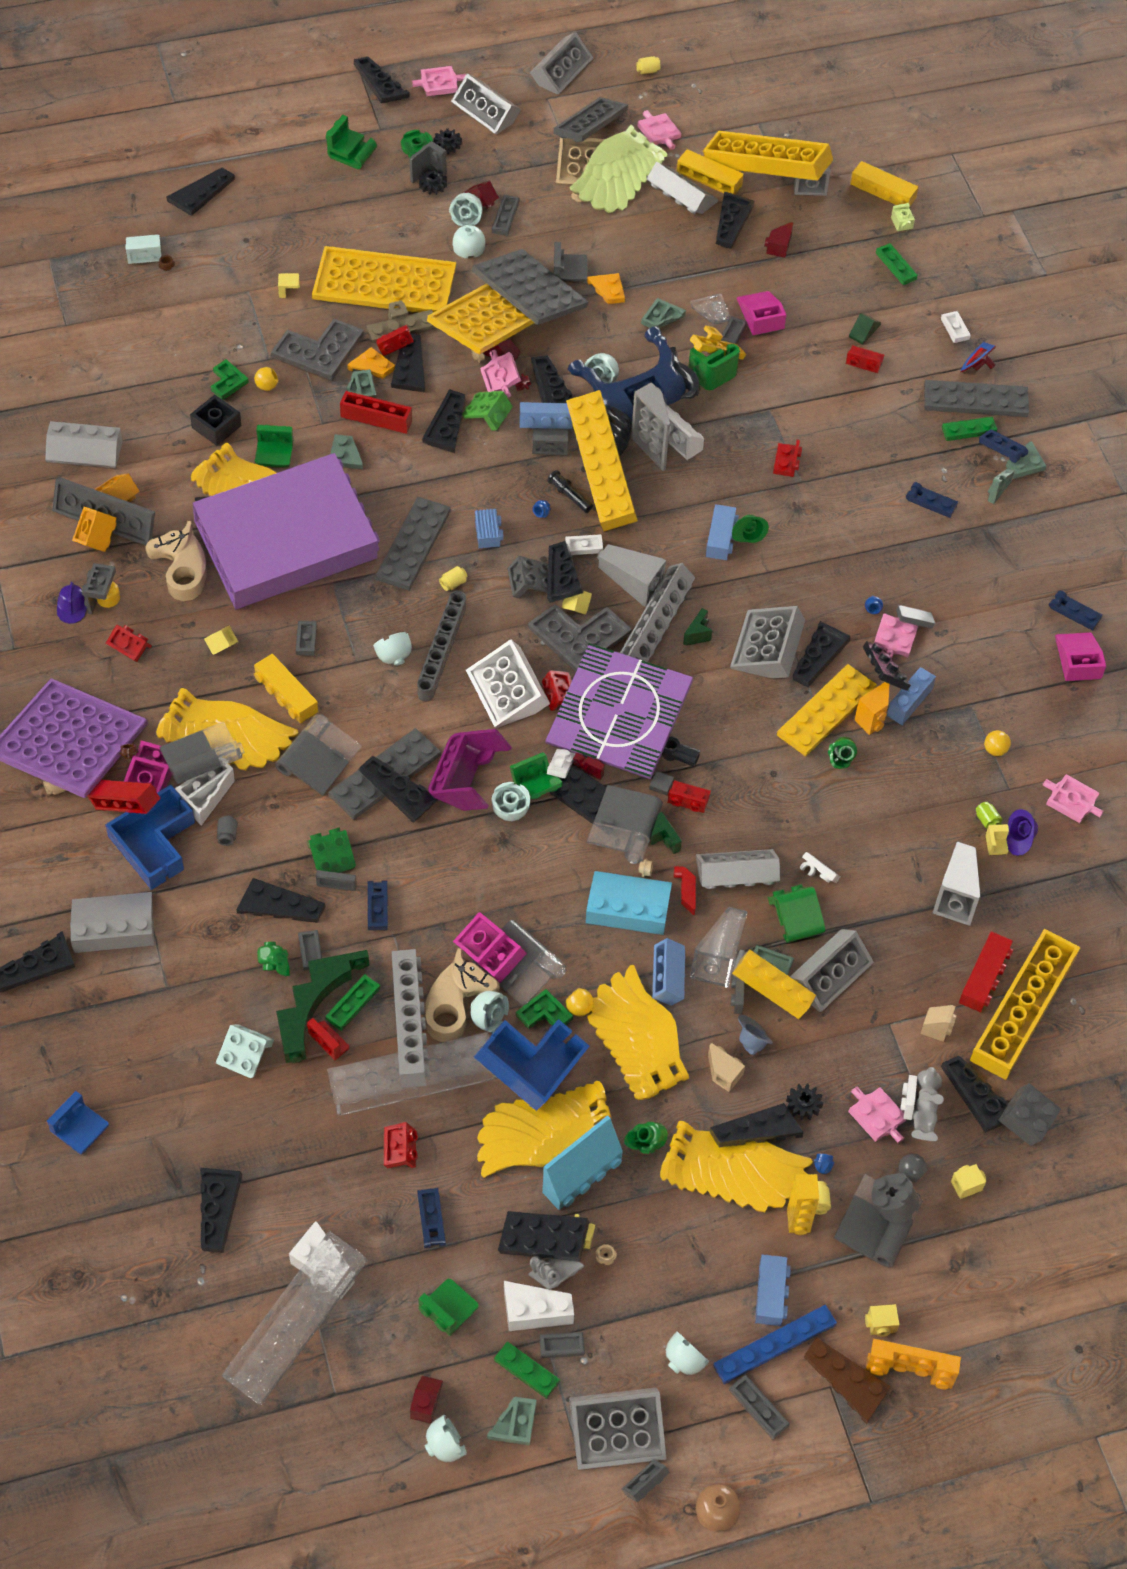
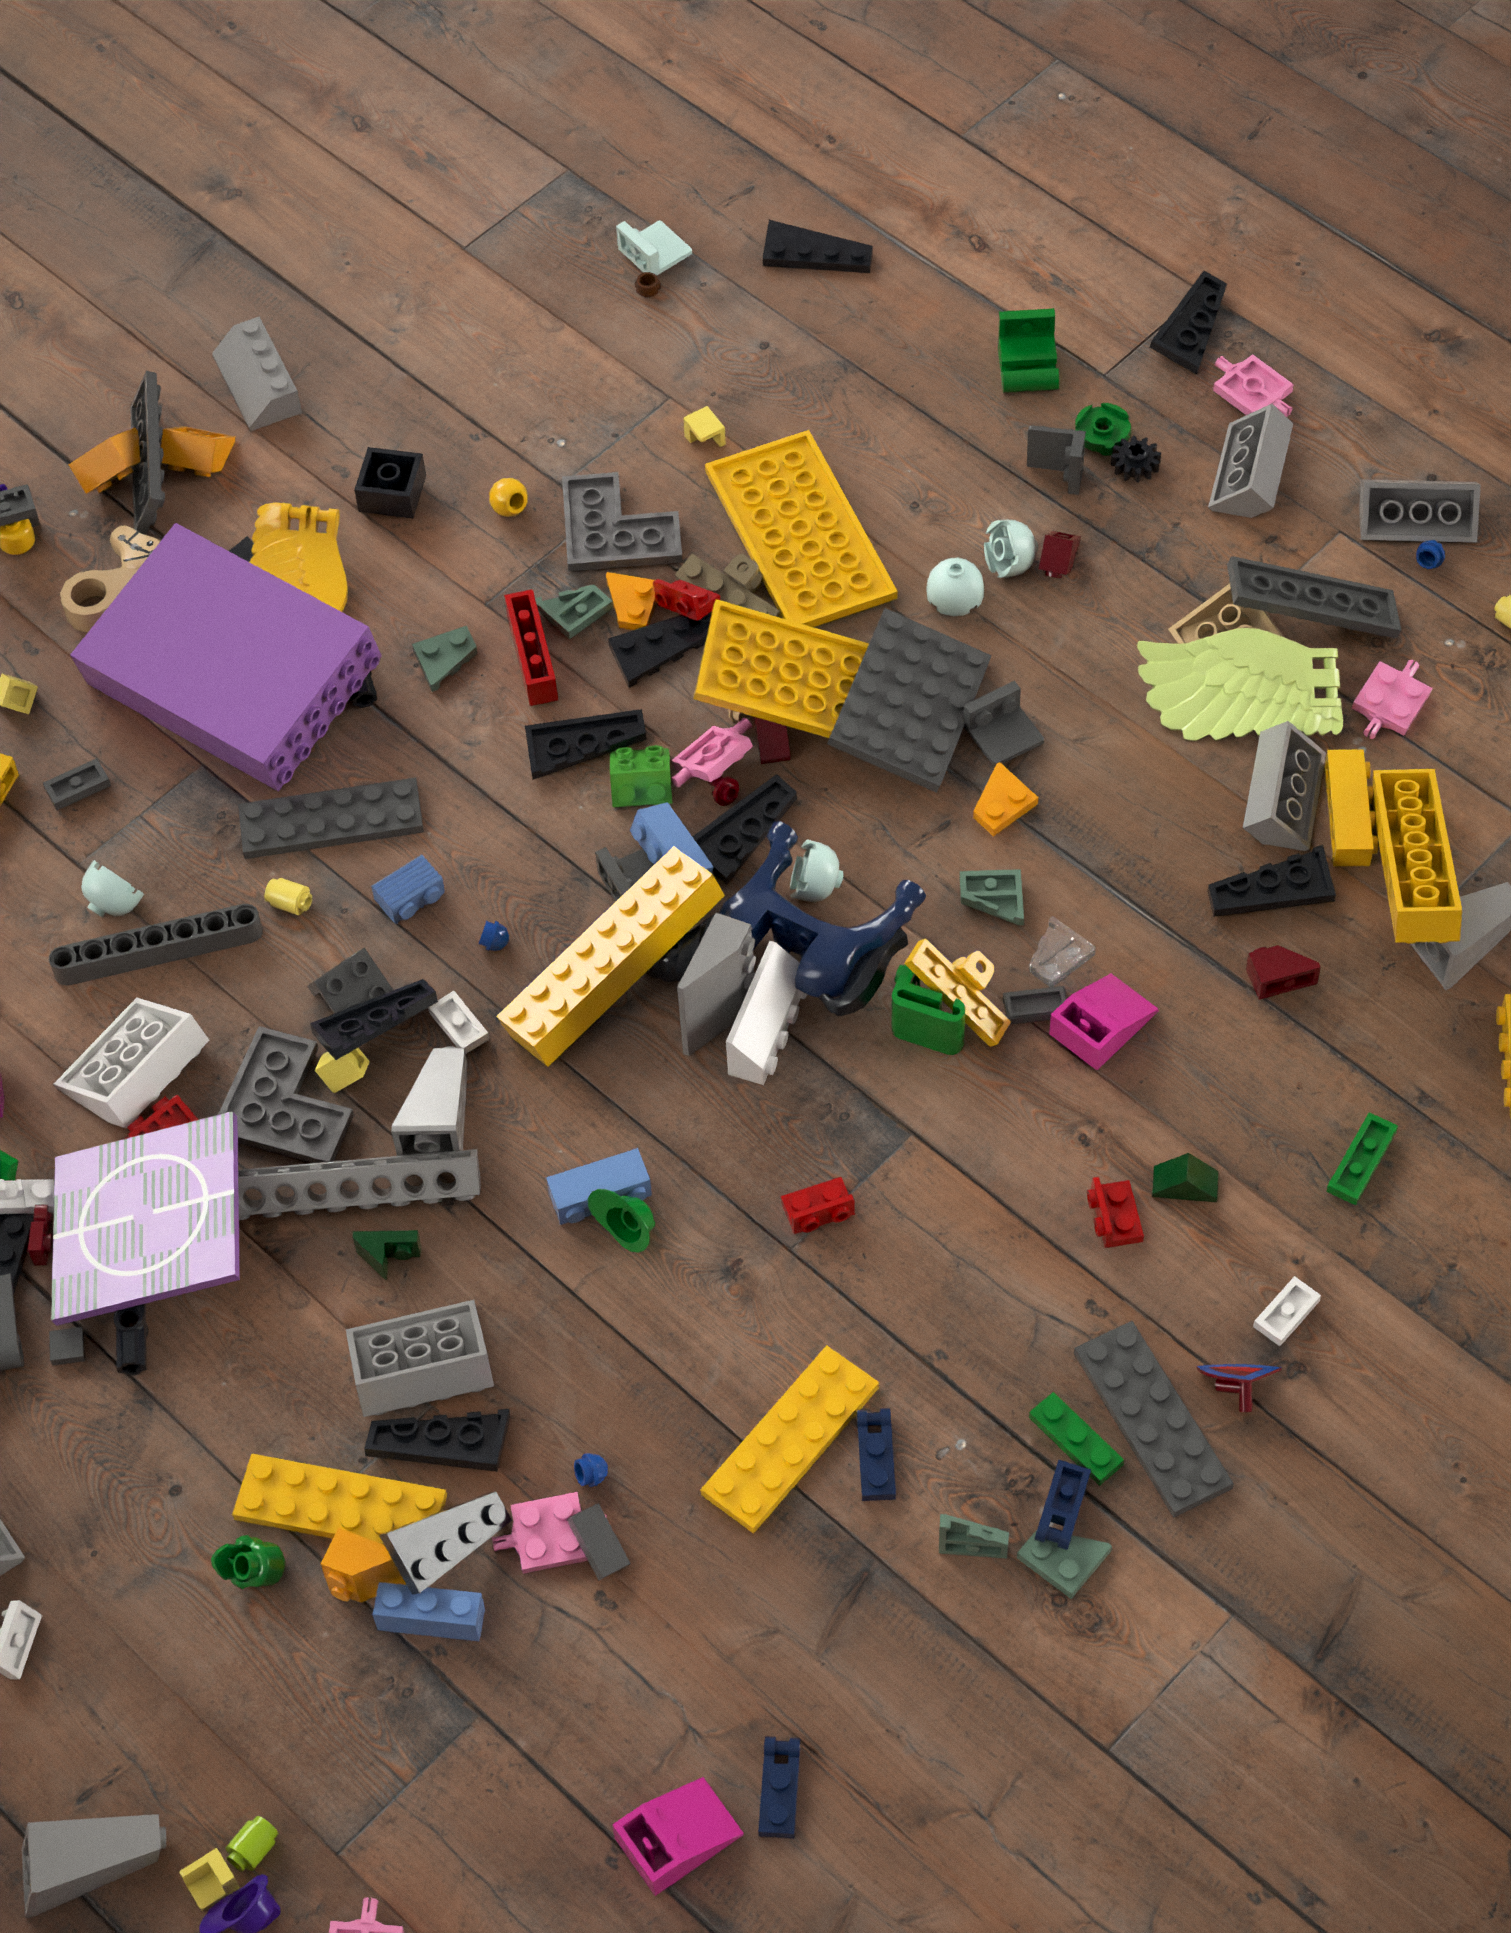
camera: 65 degrees right, 0 degrees up
(230, 381) = (484, 465): green plate -> none
(274, 445) = (393, 572): green bracket -> none
(432, 182) = (1038, 484): black gear -> none
(505, 215) = (1049, 603): dark grey tile -> none
(564, 487) = (555, 940): black pin -> none
(590, 74) = (1430, 554): none -> blue plate
(688, 796) = (59, 1393): red bracket -> none
(902, 217) = (1475, 1118): yellowish green brick -> none
(903, 527) = (789, 1439): none -> yellow plate
(997, 743) = (404, 1786): yellow piece -> none

